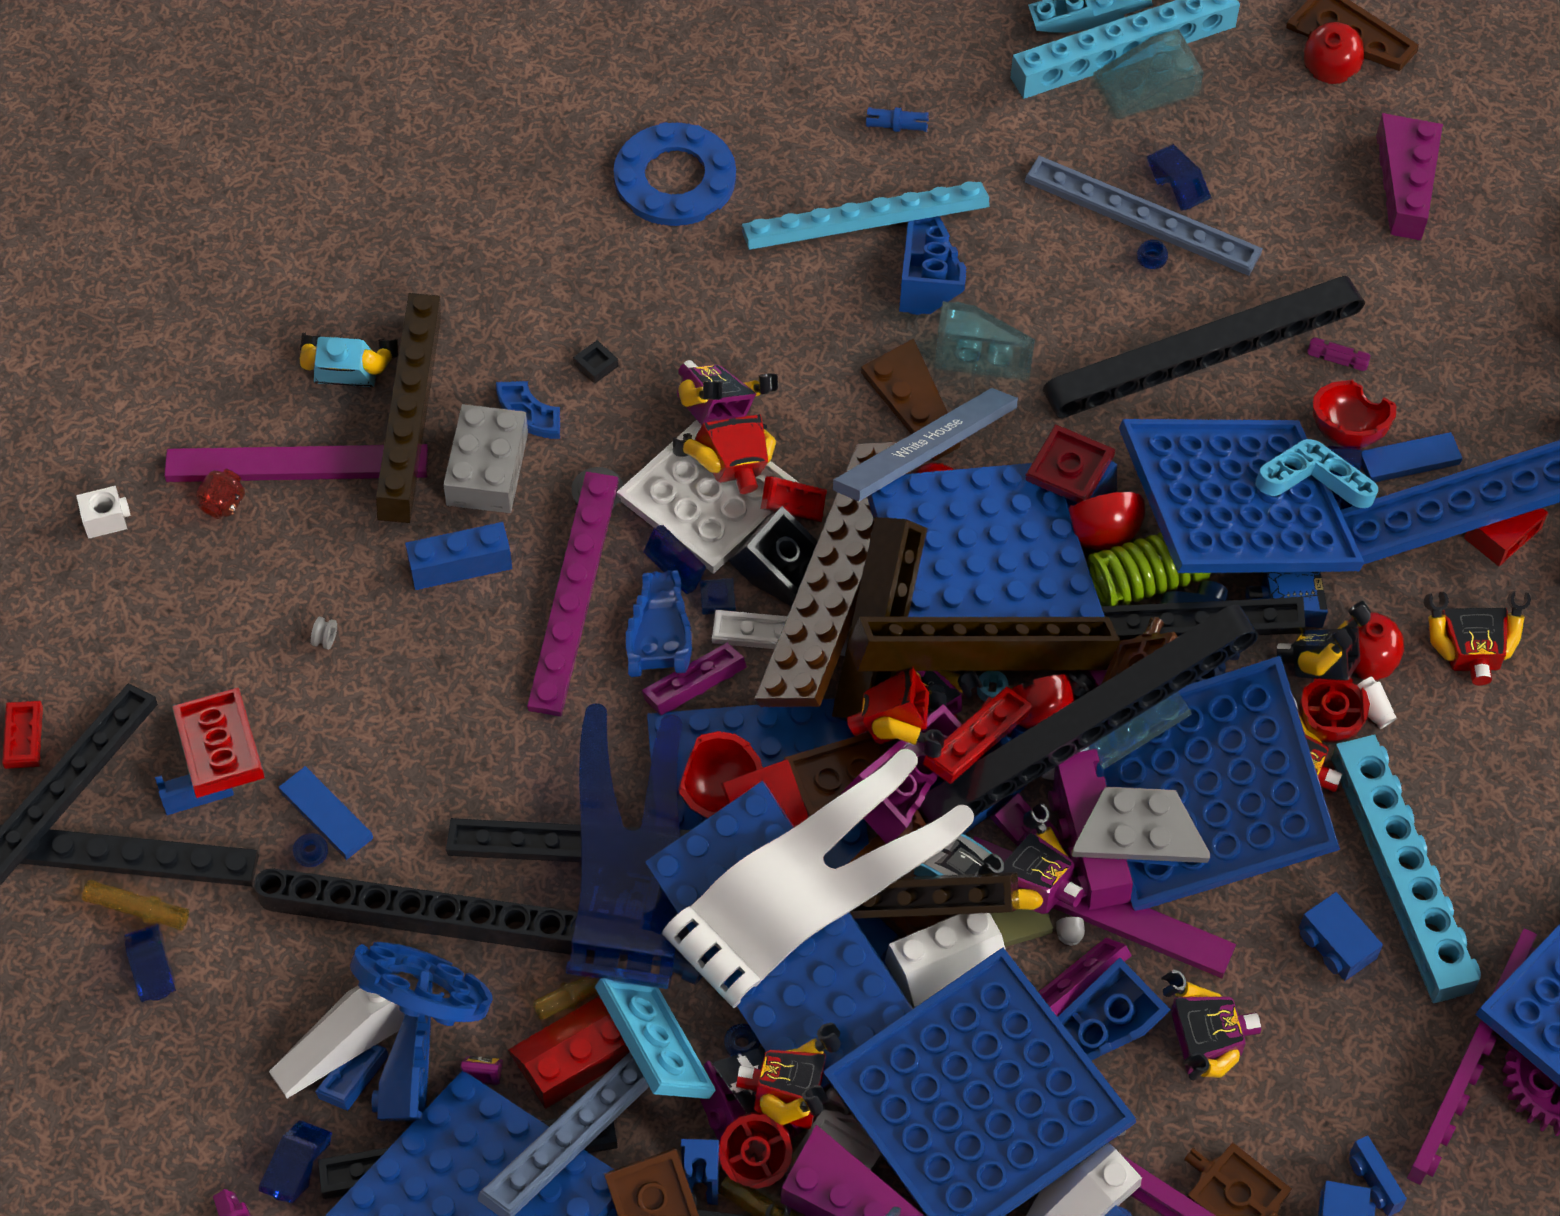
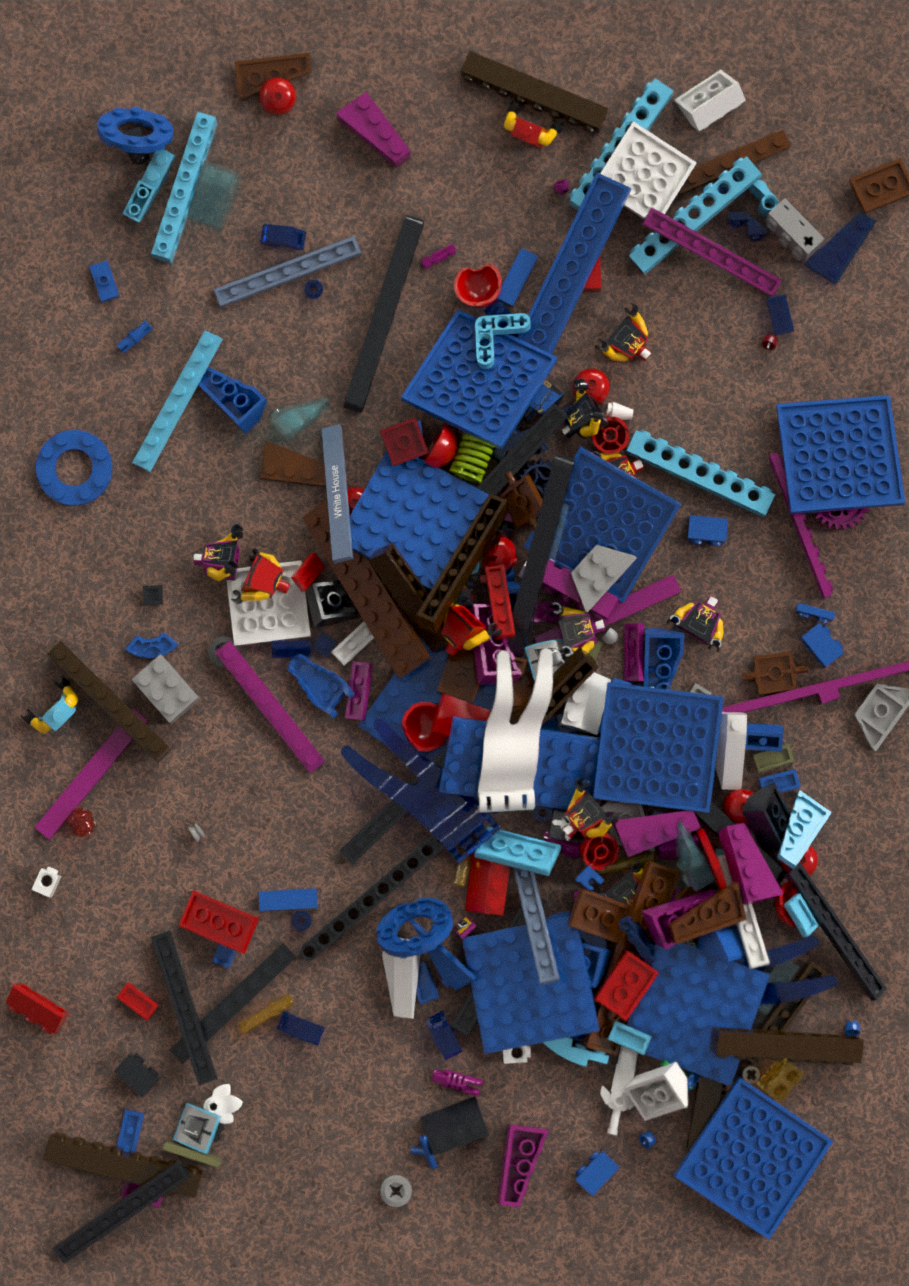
camera: 45 degrees left, 25 degrees up
(459, 555) = (208, 742): blue brick -> none
(930, 48) = (104, 281): none -> blue plate

